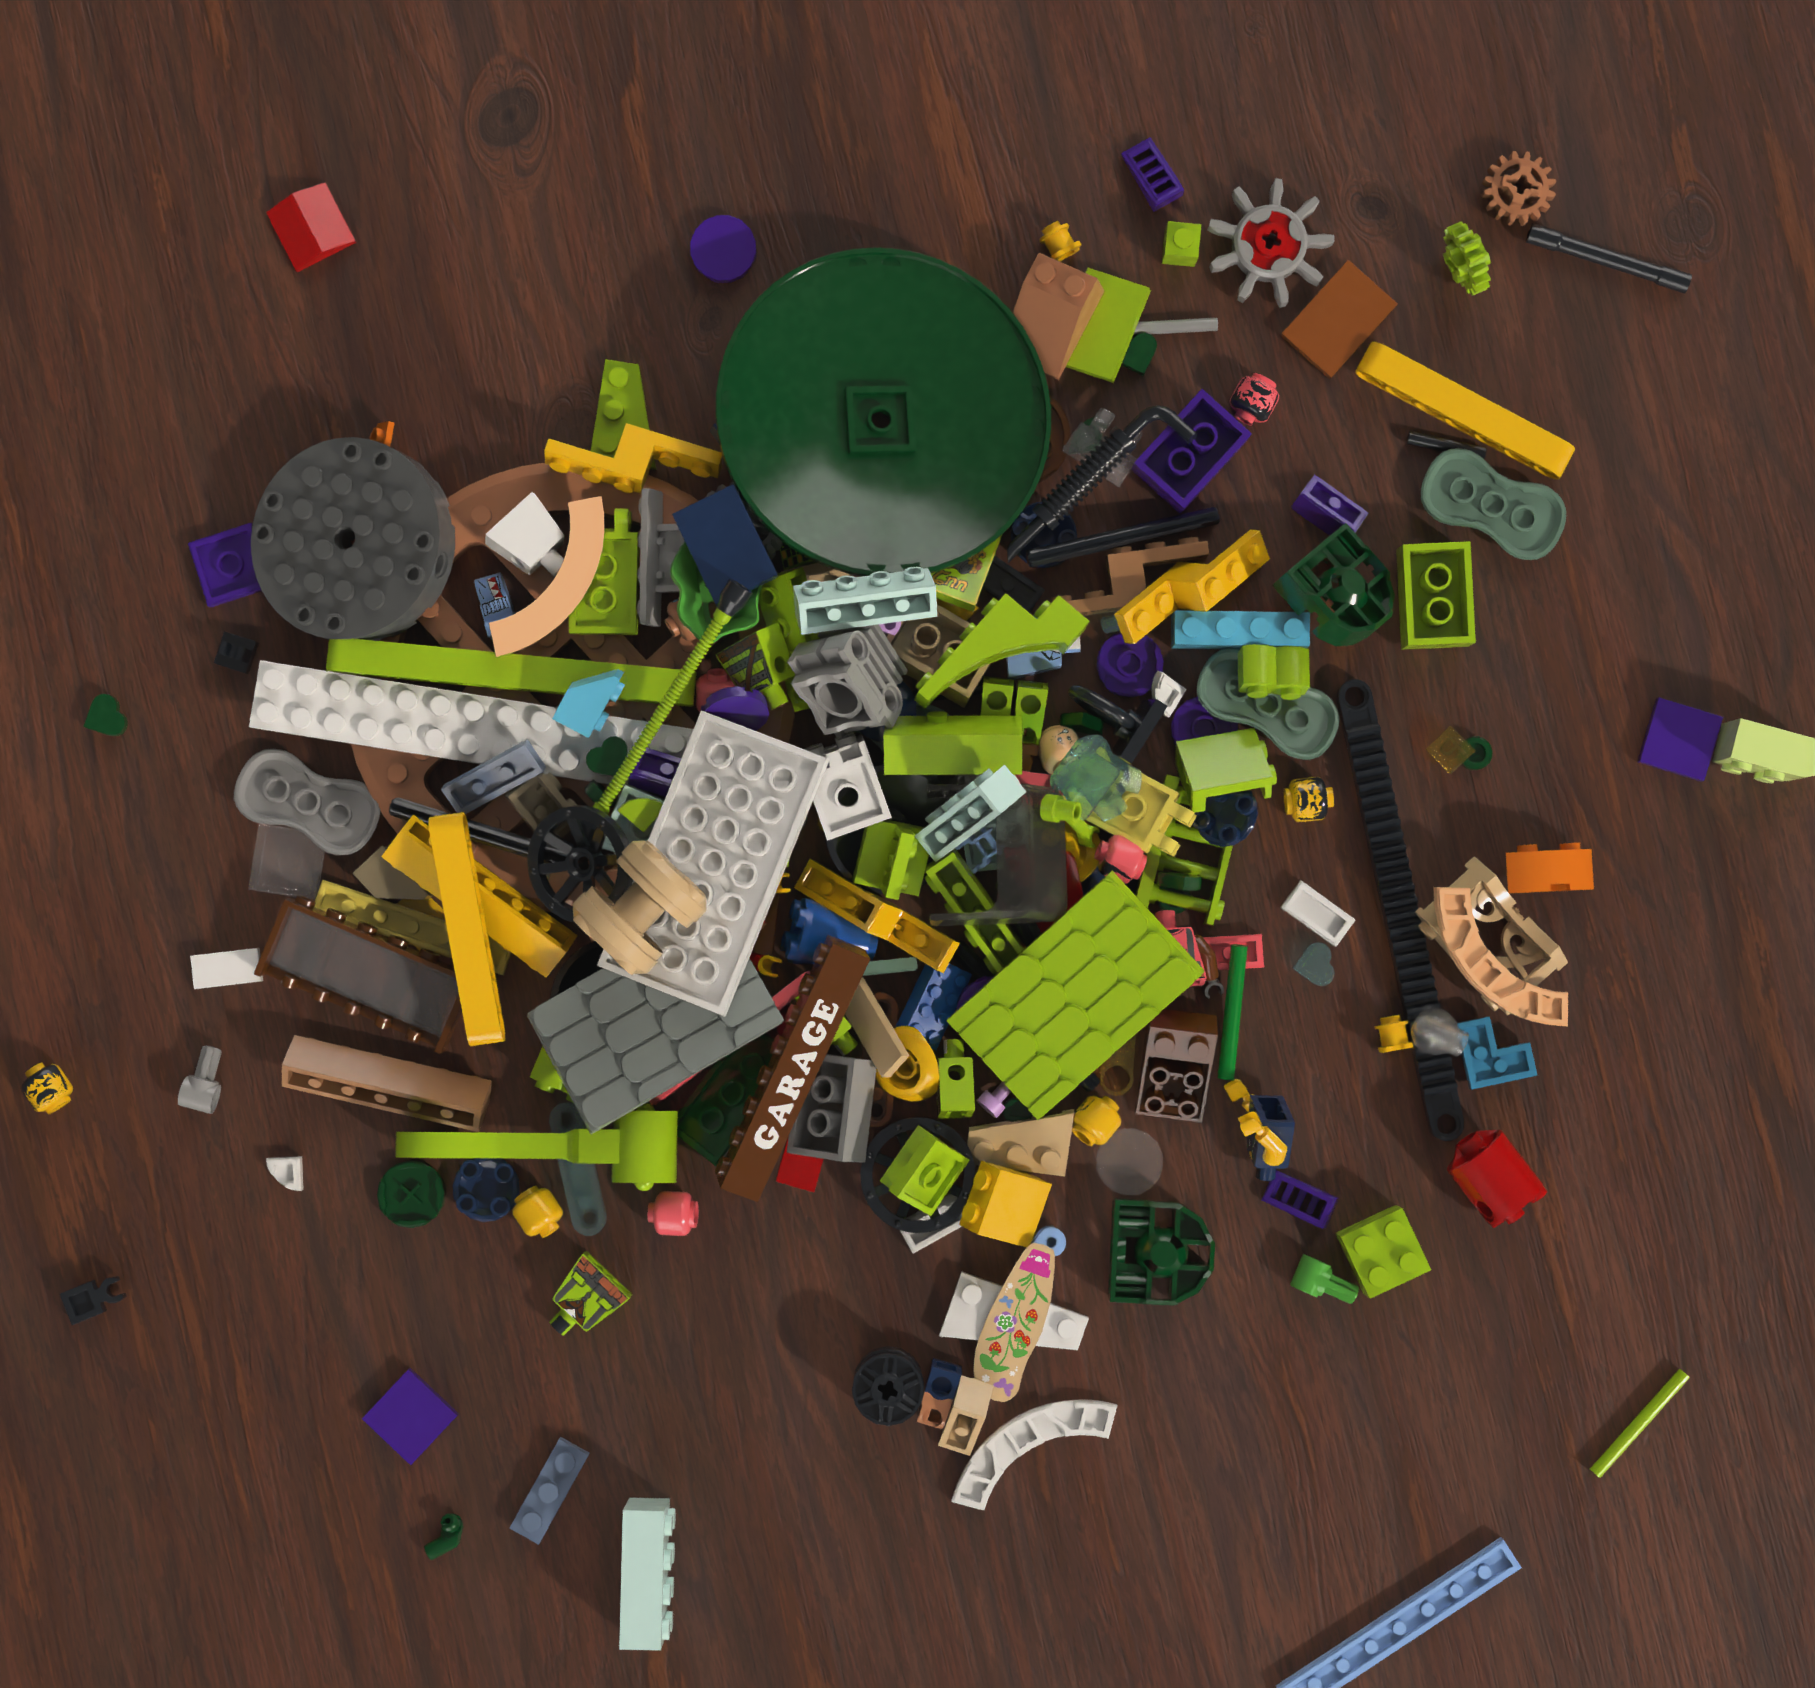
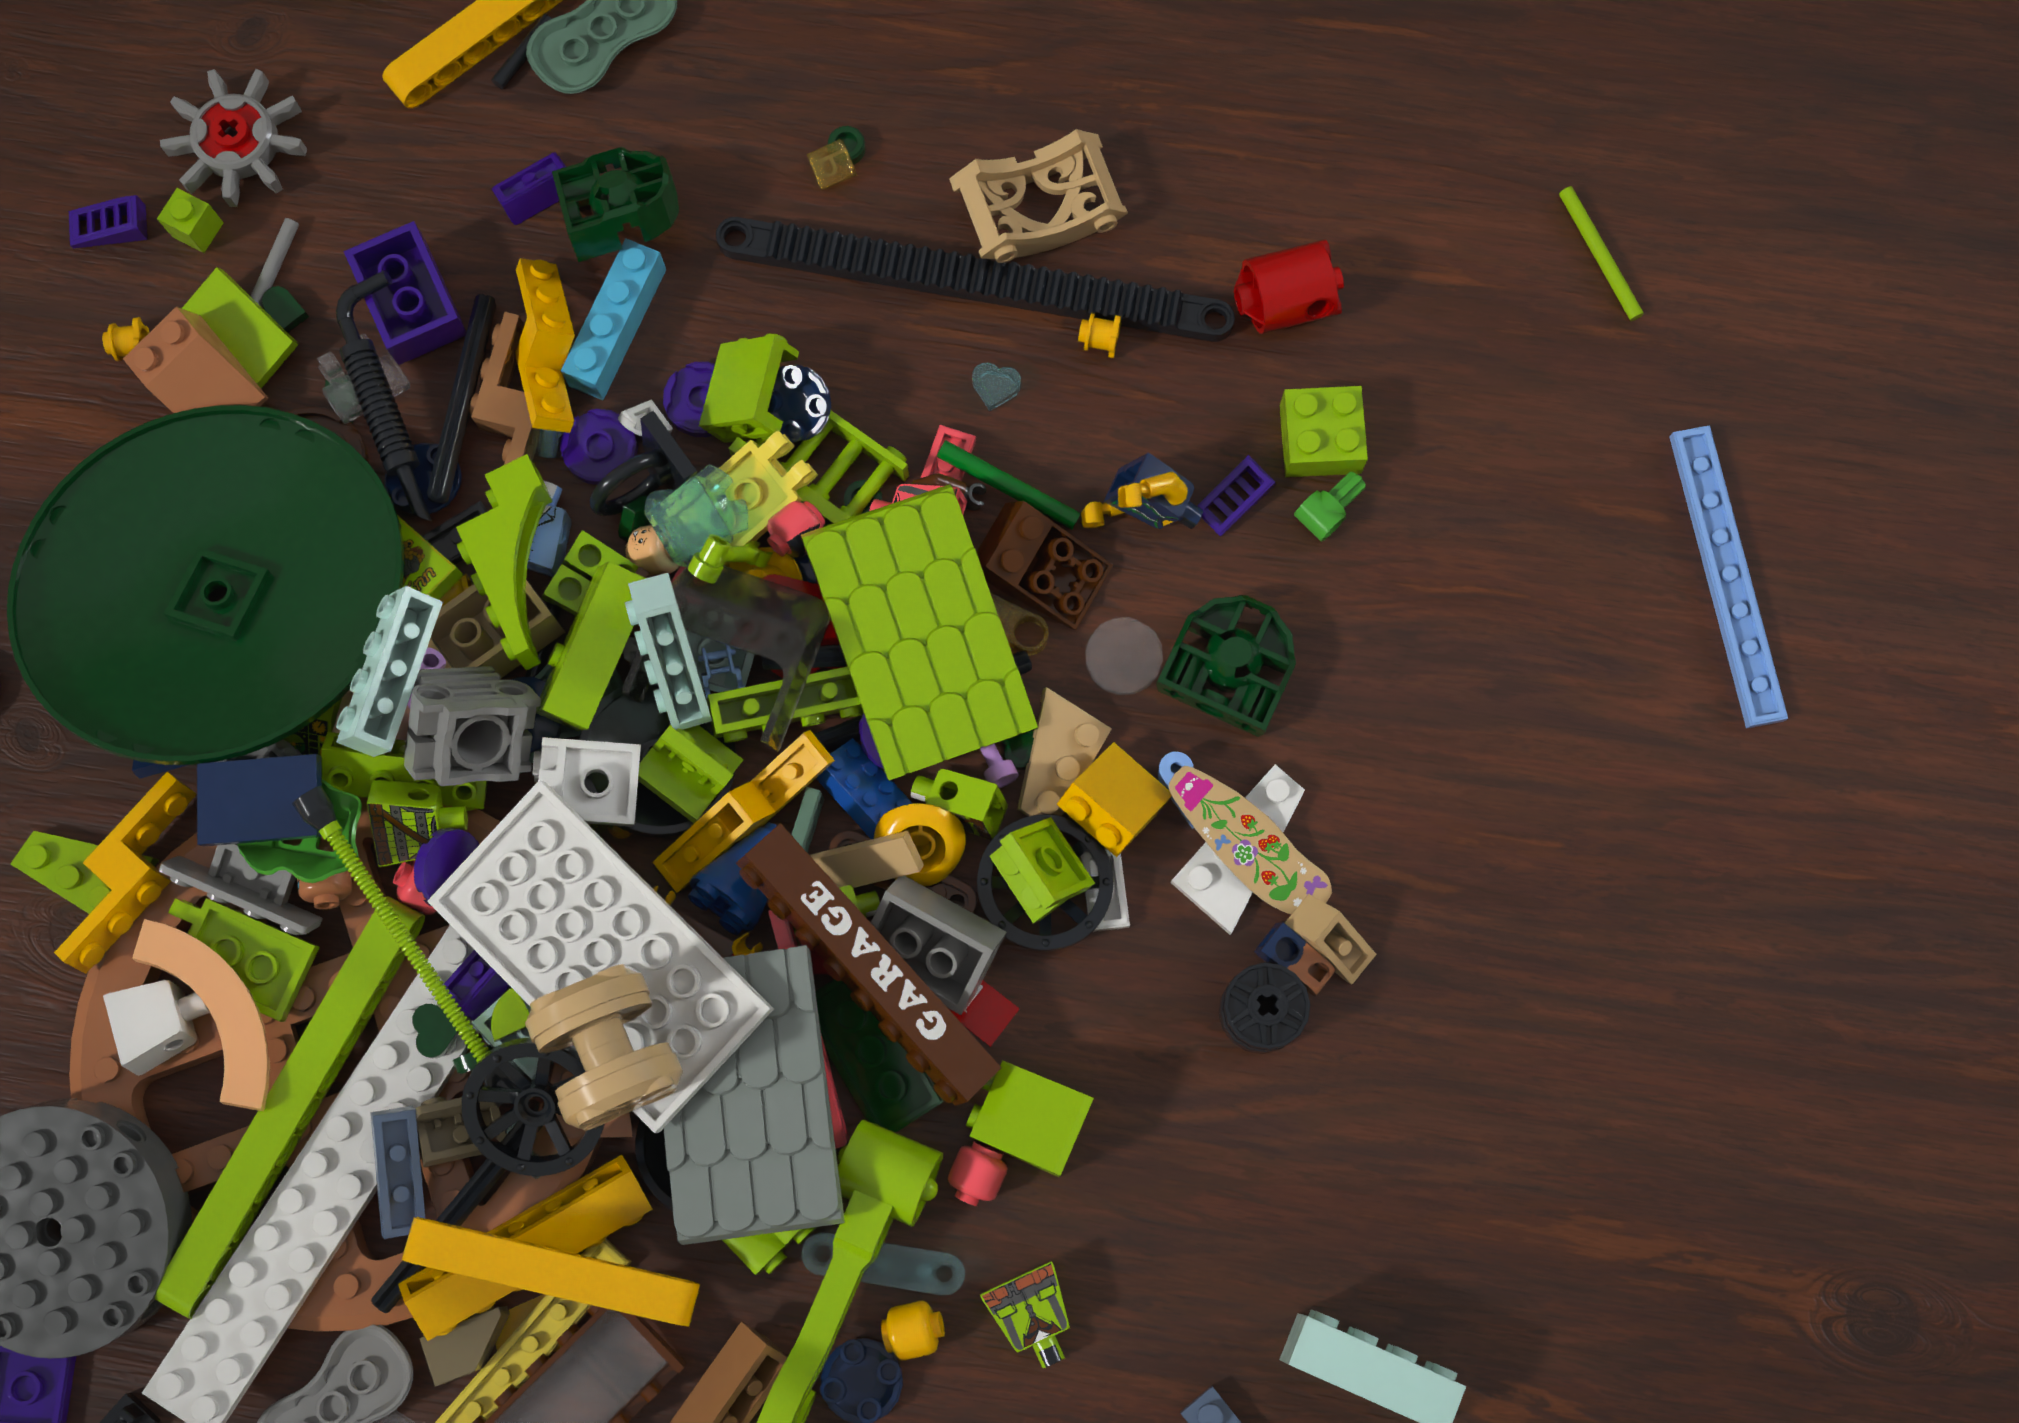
camera: 70 degrees left, 10 degrees down
(493, 599) = (204, 1095): light blue leg -> none
(585, 702) = (358, 1026): medium azure slope -> none
(729, 1239) = (1029, 1118): none -> lime slope
(1023, 1434) = (1375, 887): white tile -> none
(1096, 1120) = (1065, 670): yellow head -> none
(1179, 881) = (845, 479): dark green tile -> none
(1254, 399) = (383, 210): head -> none
(1273, 670) = (669, 300): lime brick -> none
(1297, 727) = (726, 303): sand green plate -> none
(1308, 799) = (819, 322): yellow head -> none
(1317, 913) = (943, 361): white tile -> none
(1339, 319) = (346, 103): dark orange tile -> none
(1435, 595) = (667, 114): lime brick -> none
(1437, 1032) = (1116, 282): clear piece -> none
(1482, 968) = (1067, 208): light nougat tile -> none
(1491, 1065) = (1162, 257): dark azure plate -> none
(1549, 869) = (995, 114): orange brick -> none

